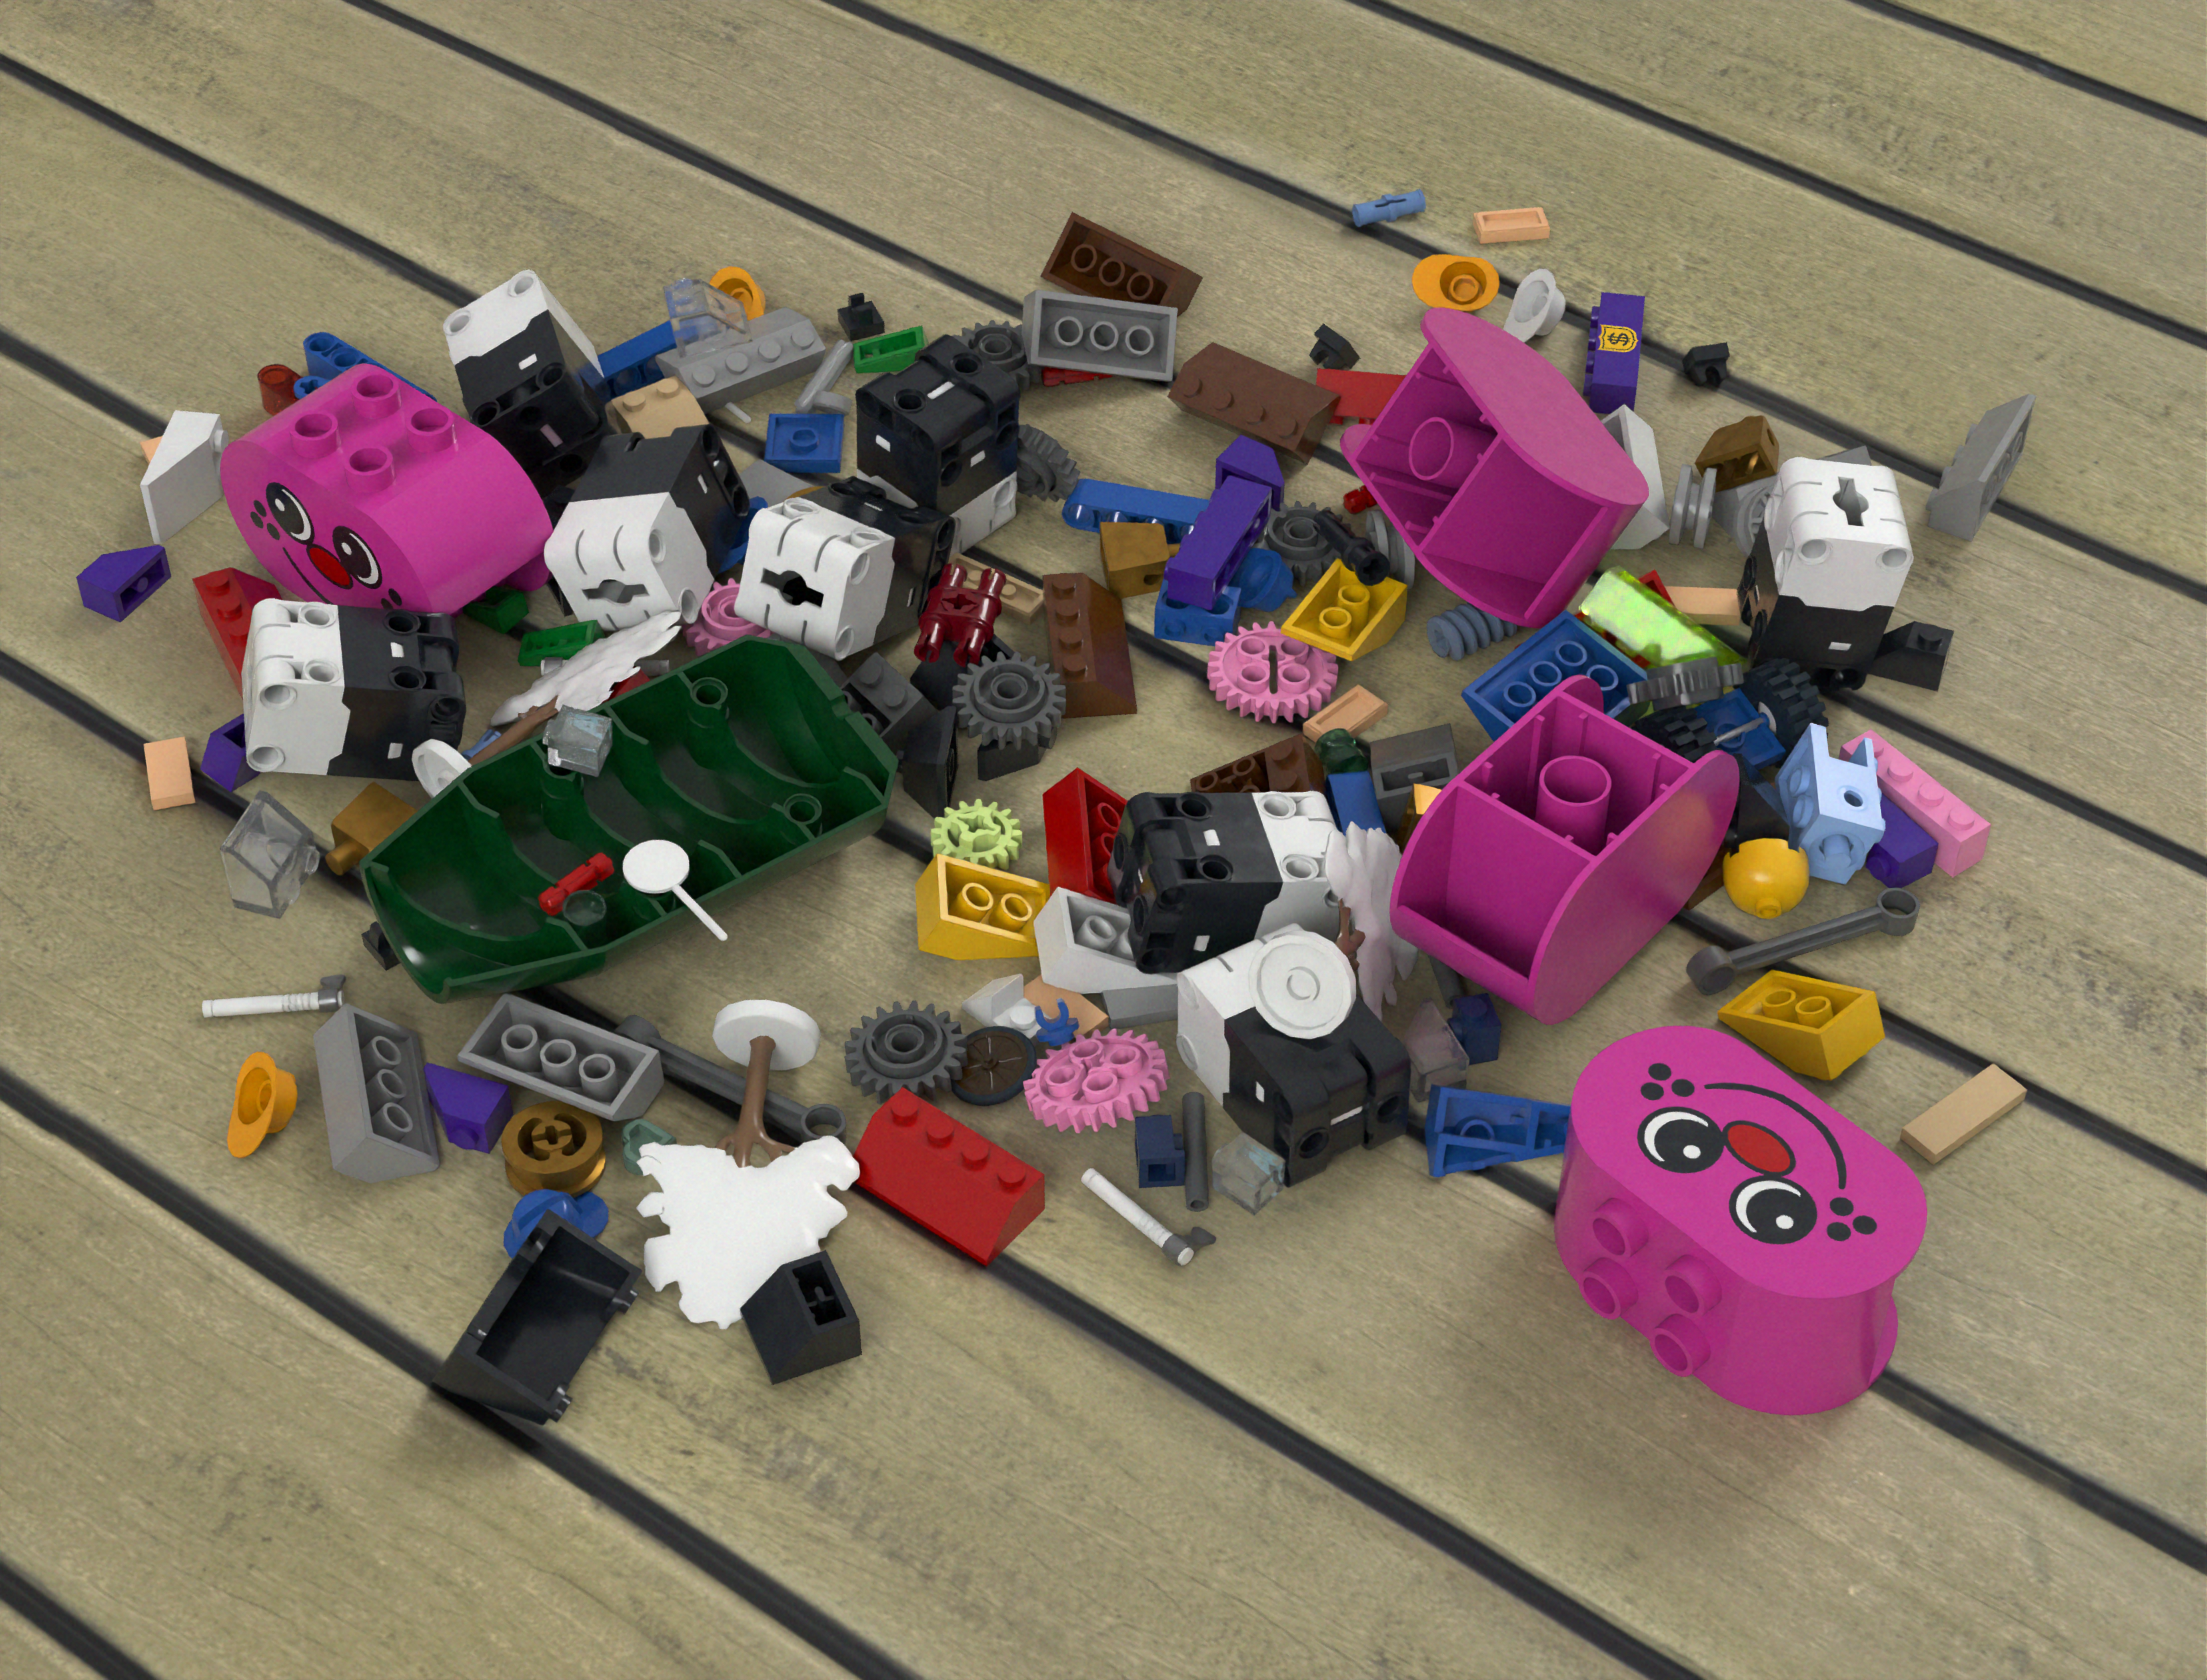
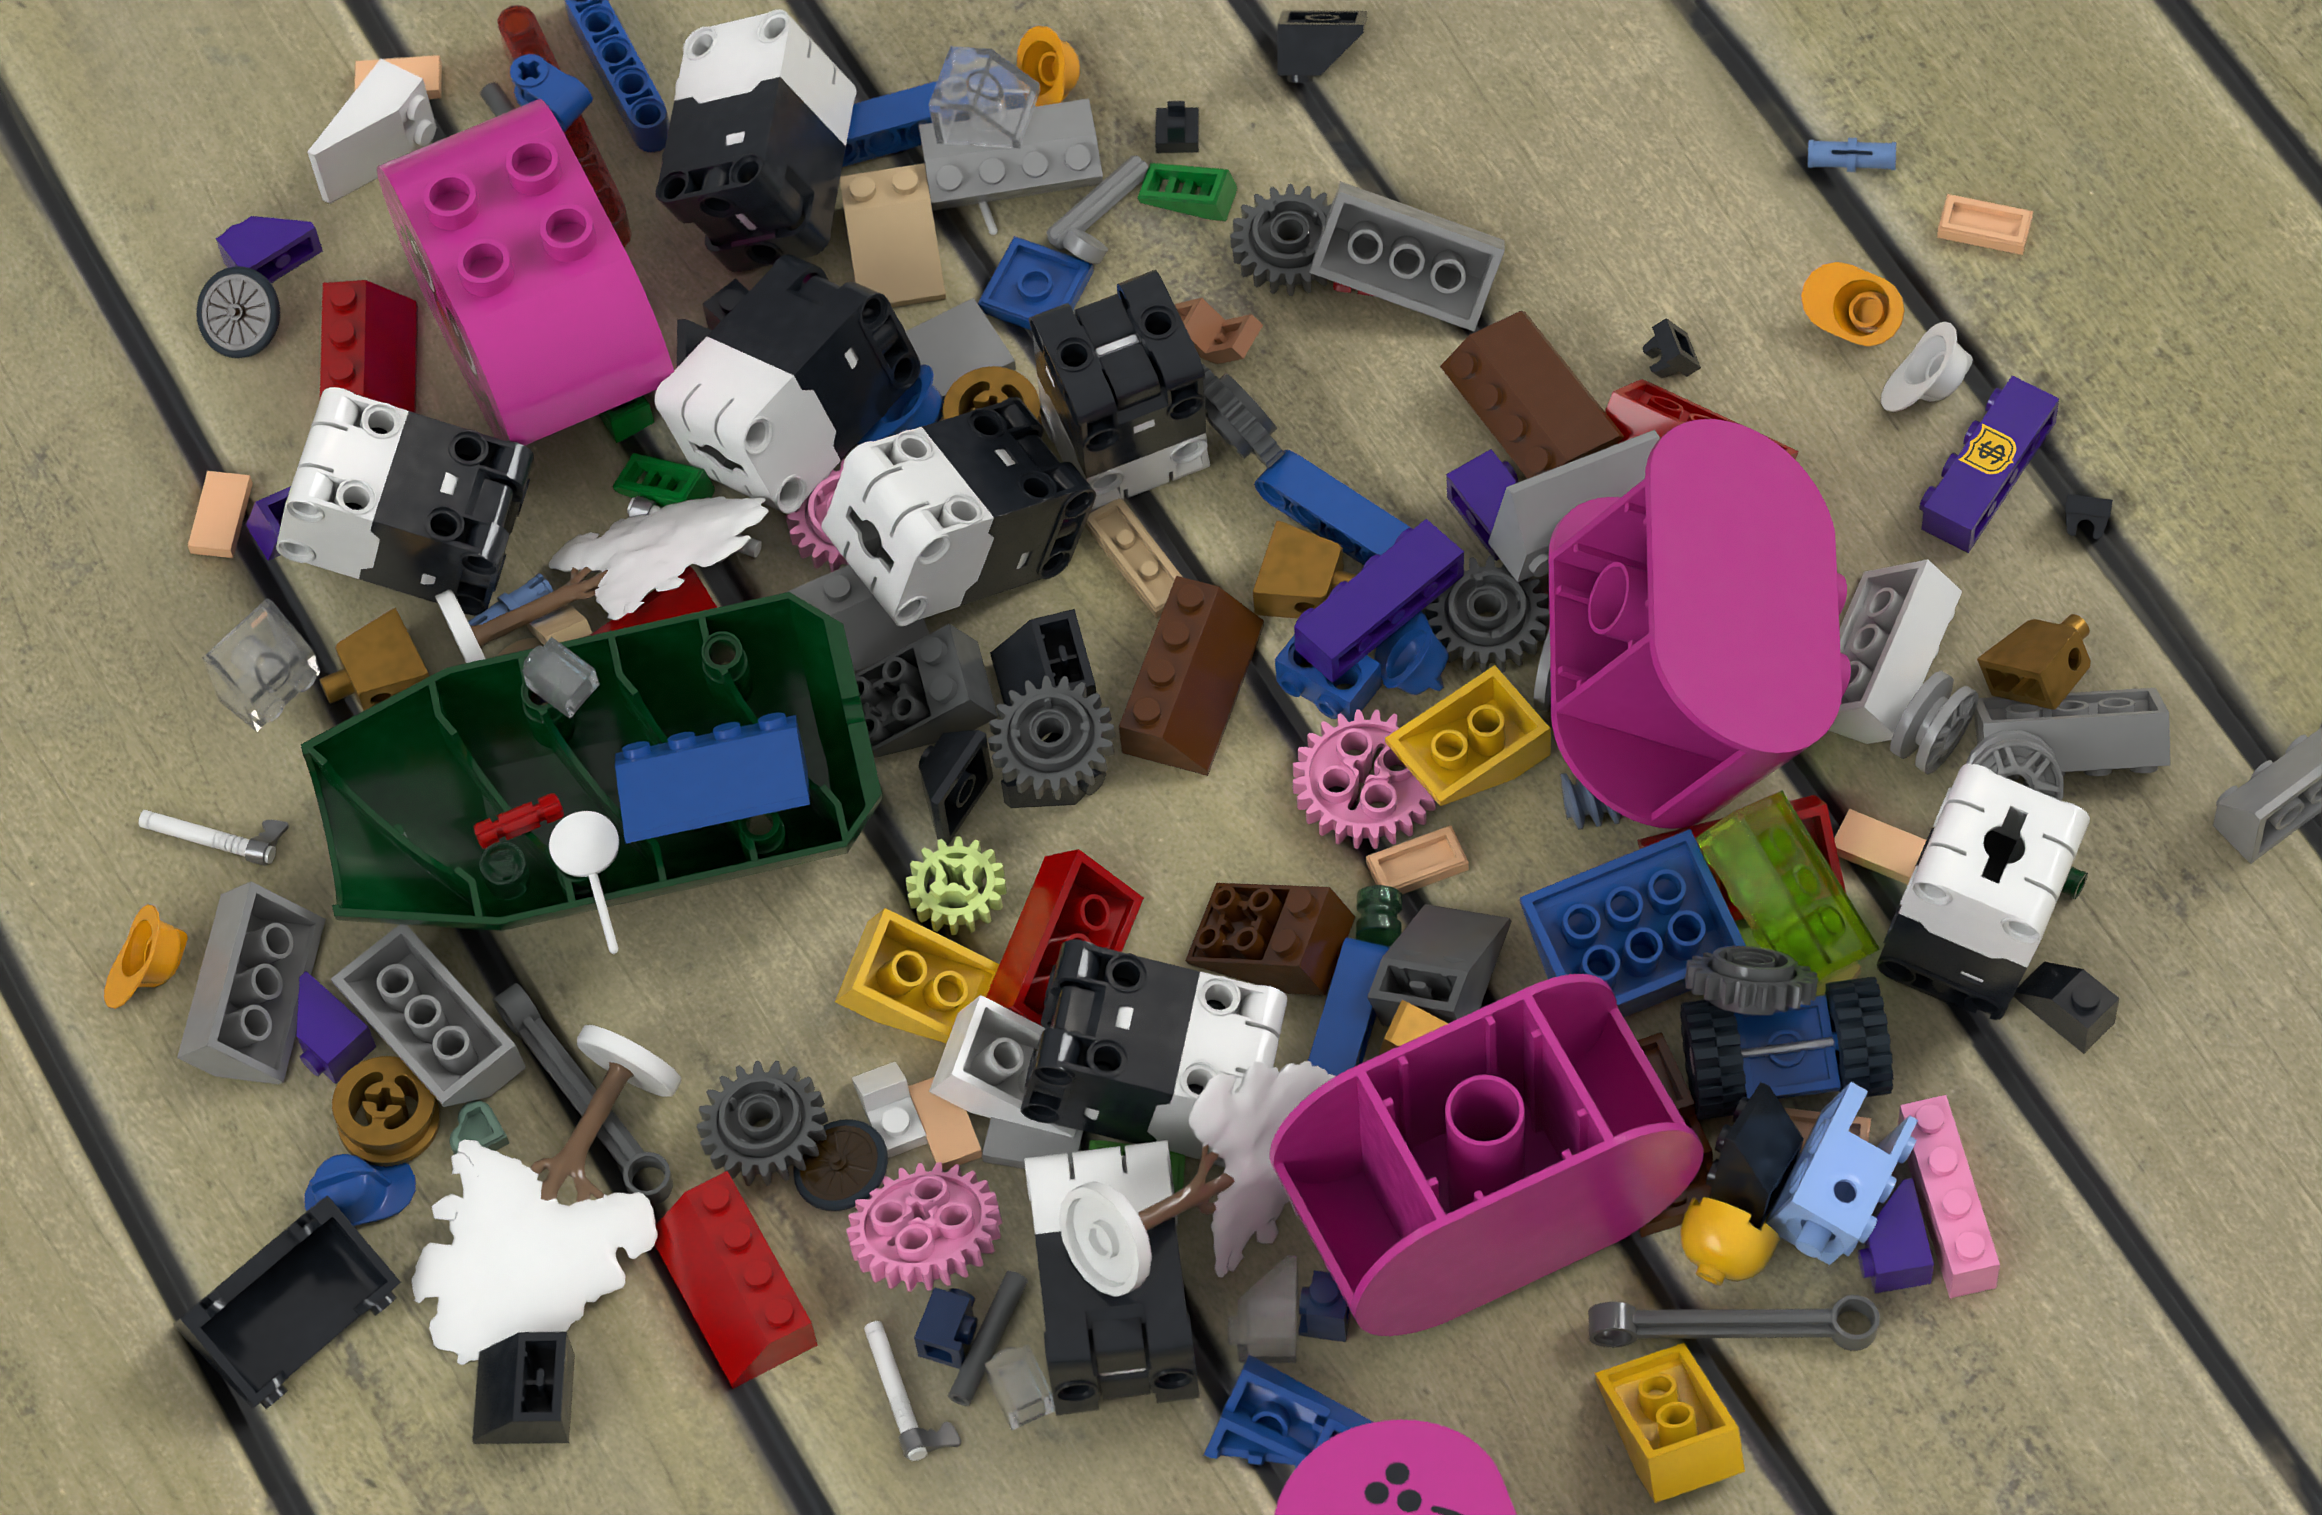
camera: 30 degrees right, 15 degrees up
(119, 626) = (238, 312): none -> wheel
(743, 786) = (711, 777): none -> blue slope
(940, 237) = (1314, 40): none -> black slope
(960, 615) = (1051, 611): dark red pin -> none
(1056, 1030) = (914, 1151): blue plate -> none
(1111, 267) = (1490, 158): reddish brown slope -> none
(1313, 459) = (1538, 503): none -> light grey slope
(1356, 552) = (1509, 671): black pin -> none

